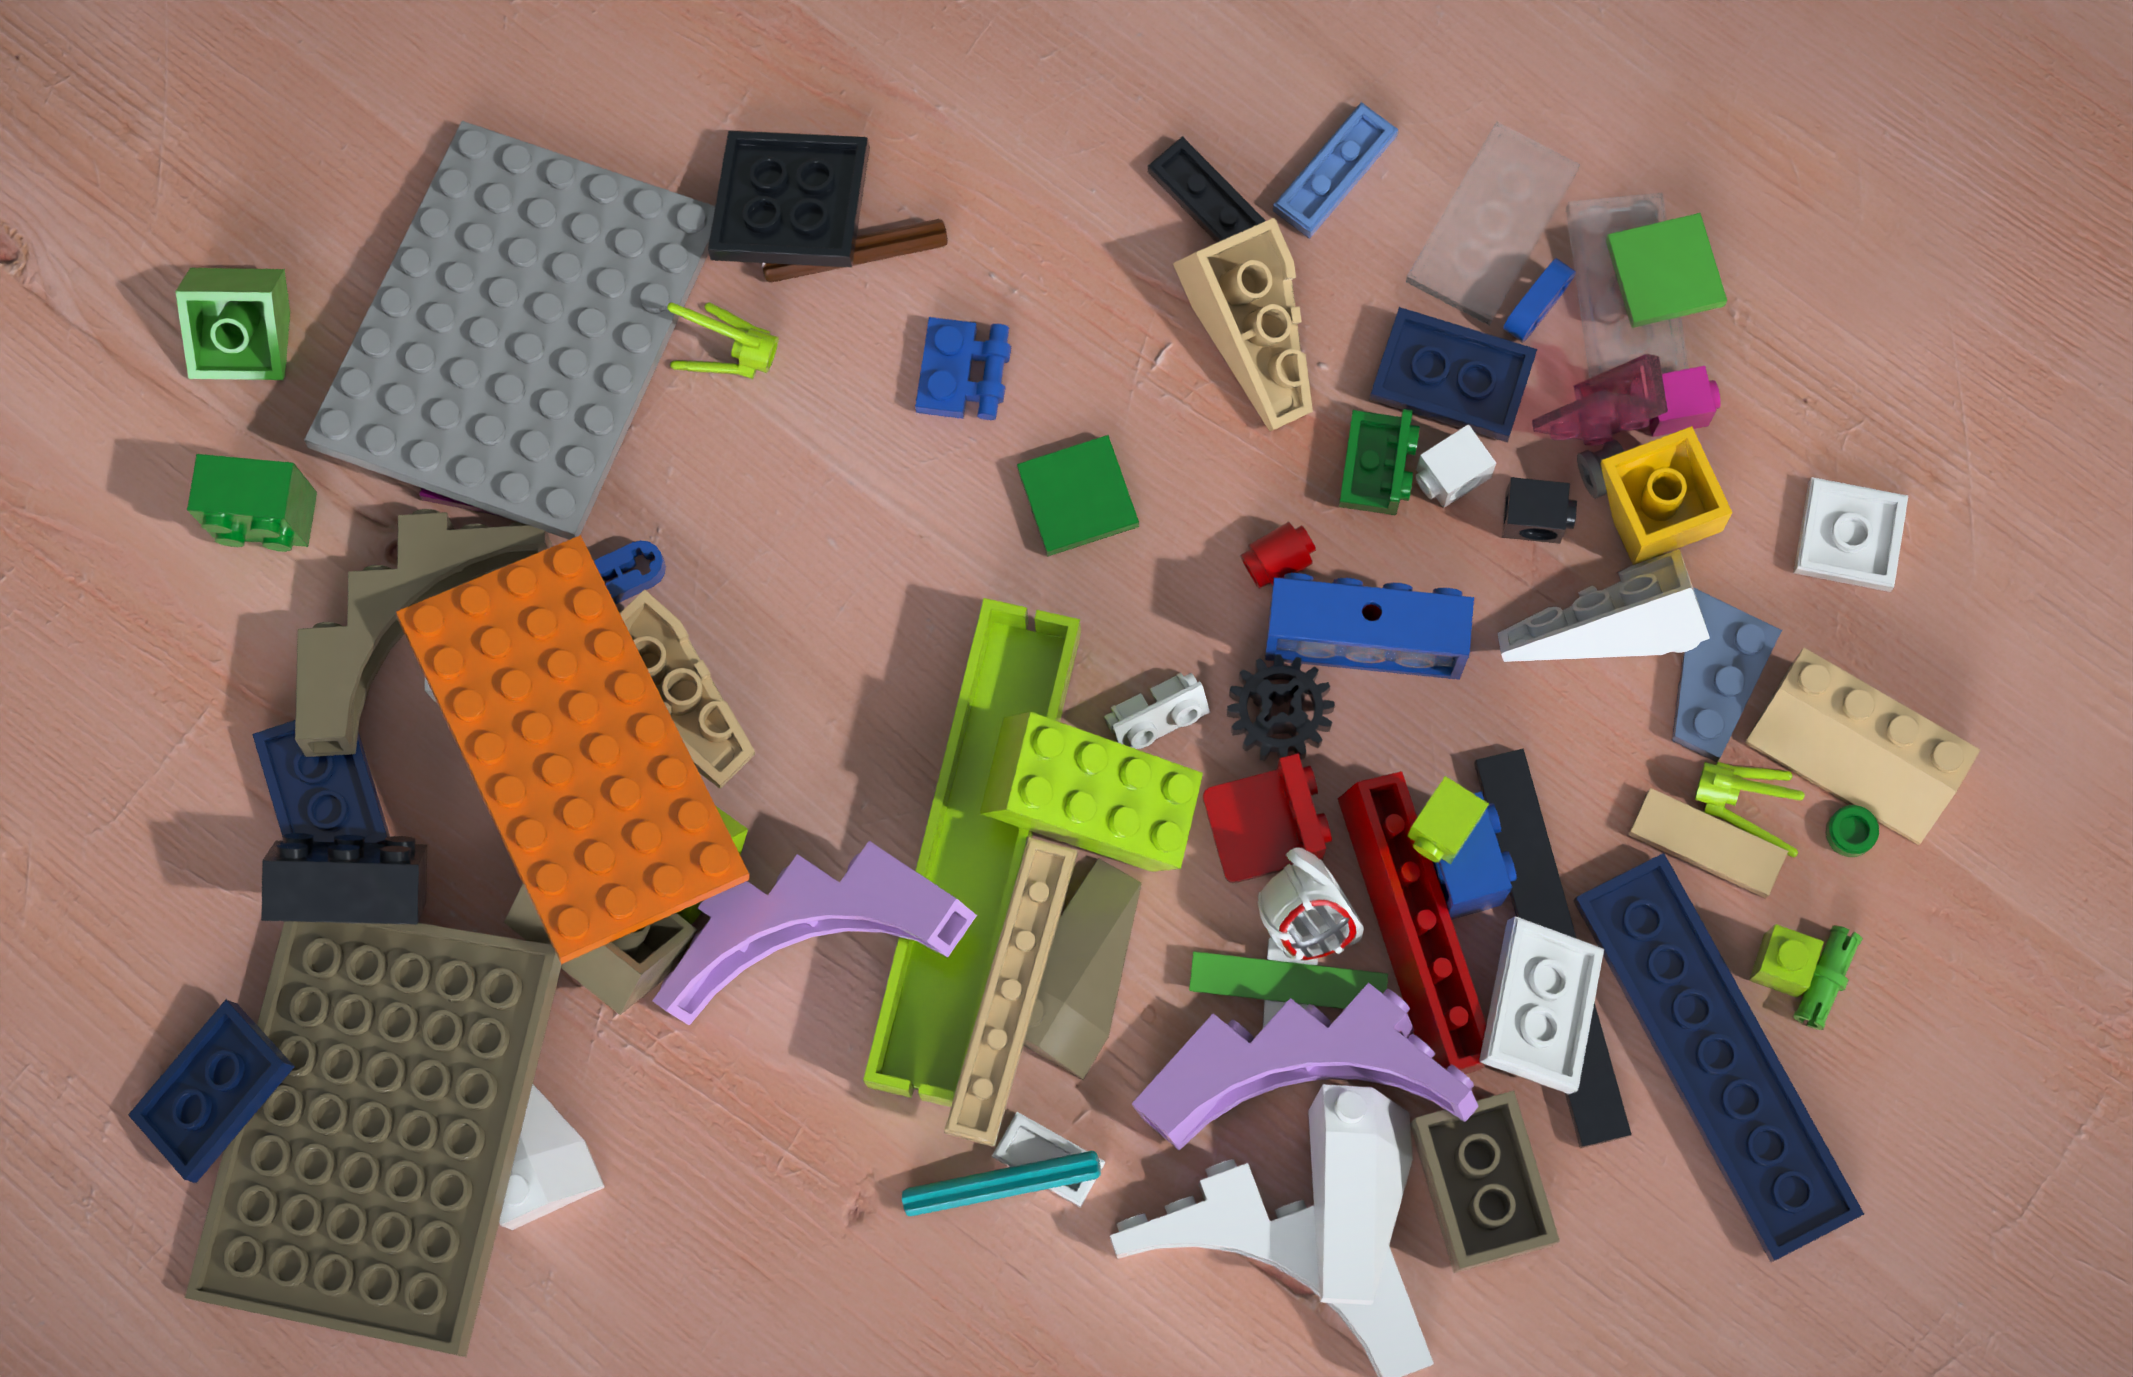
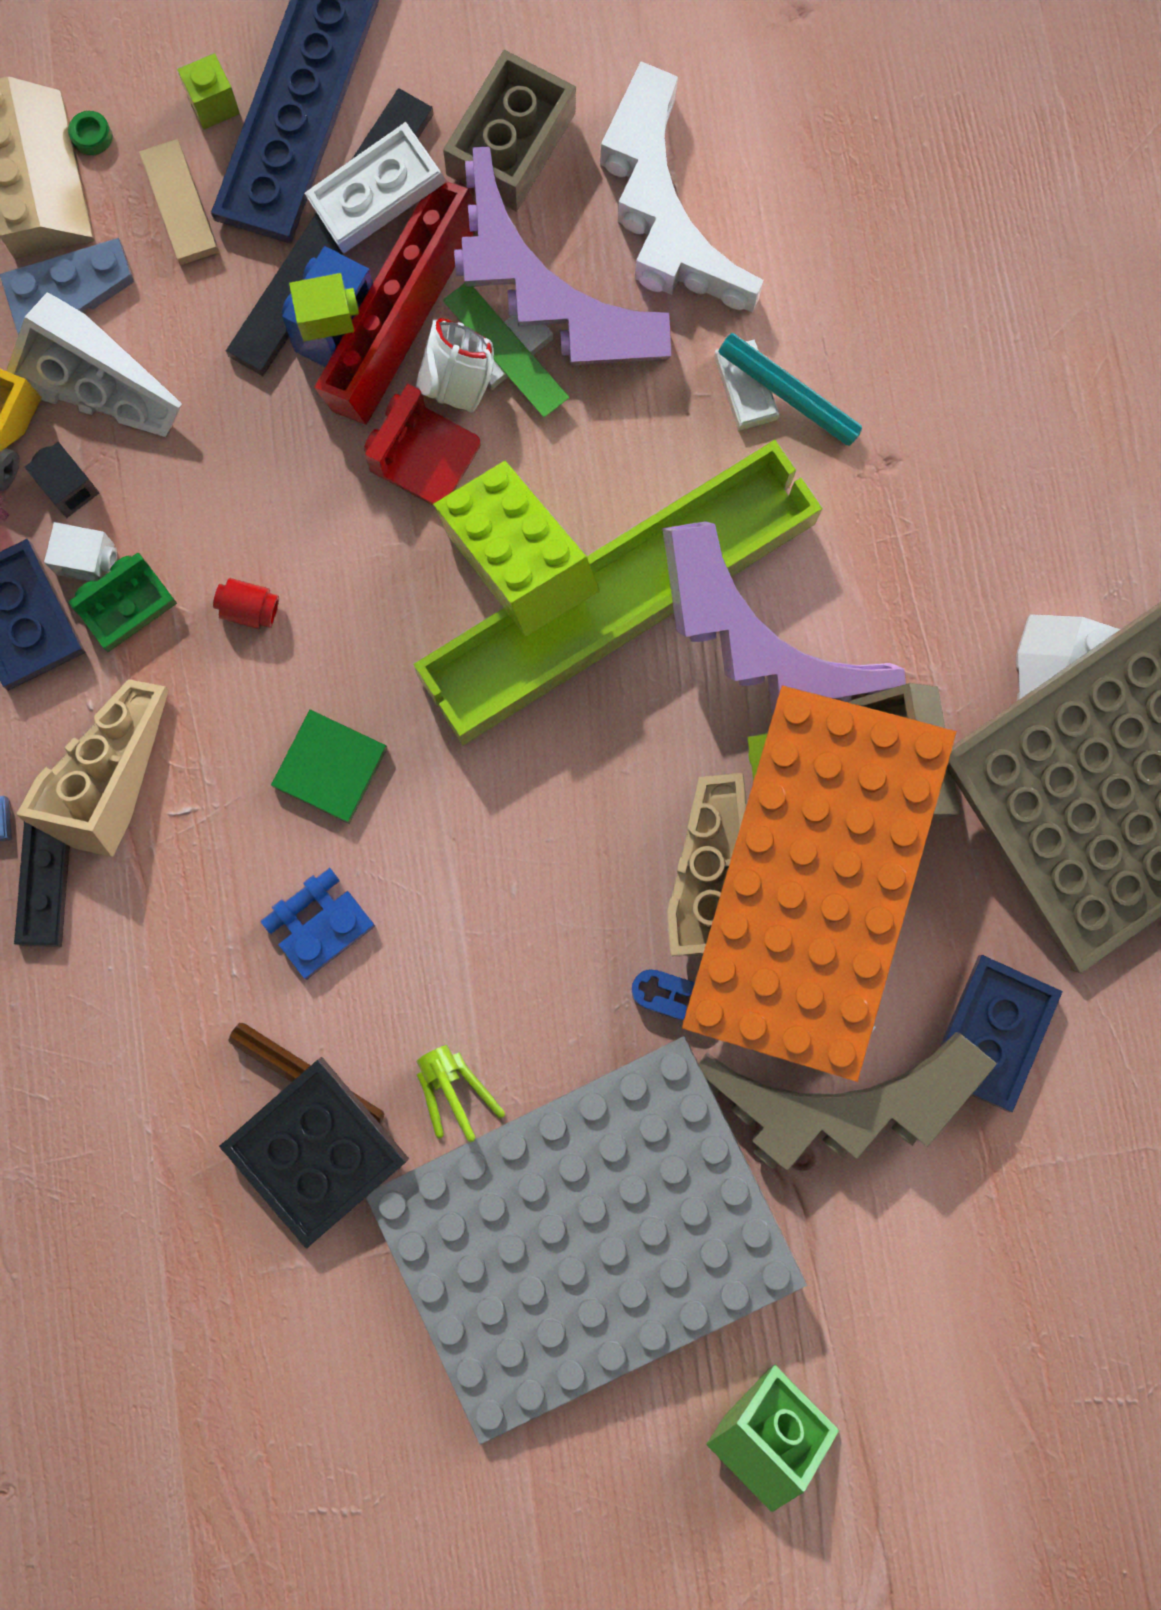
camera: 145 degrees left, 5 degrees up
(252, 501) = (879, 1279): green brick -> none
(344, 880) = (1042, 938): black brick -> none
(1011, 992) = (682, 473): tan tile -> none
(1084, 971) = (636, 469): dark tan wedge -> none
(1177, 705) = (404, 574): white hinge -> none
(1264, 693) = (328, 506): black gear -> none
(1358, 1184) = (583, 194): white wedge -> none
(1369, 626) = (239, 496): blue brick -> none
(1722, 784) = (136, 222): lime plant -> none
(1828, 977) = (168, 76): bright green pin -> none

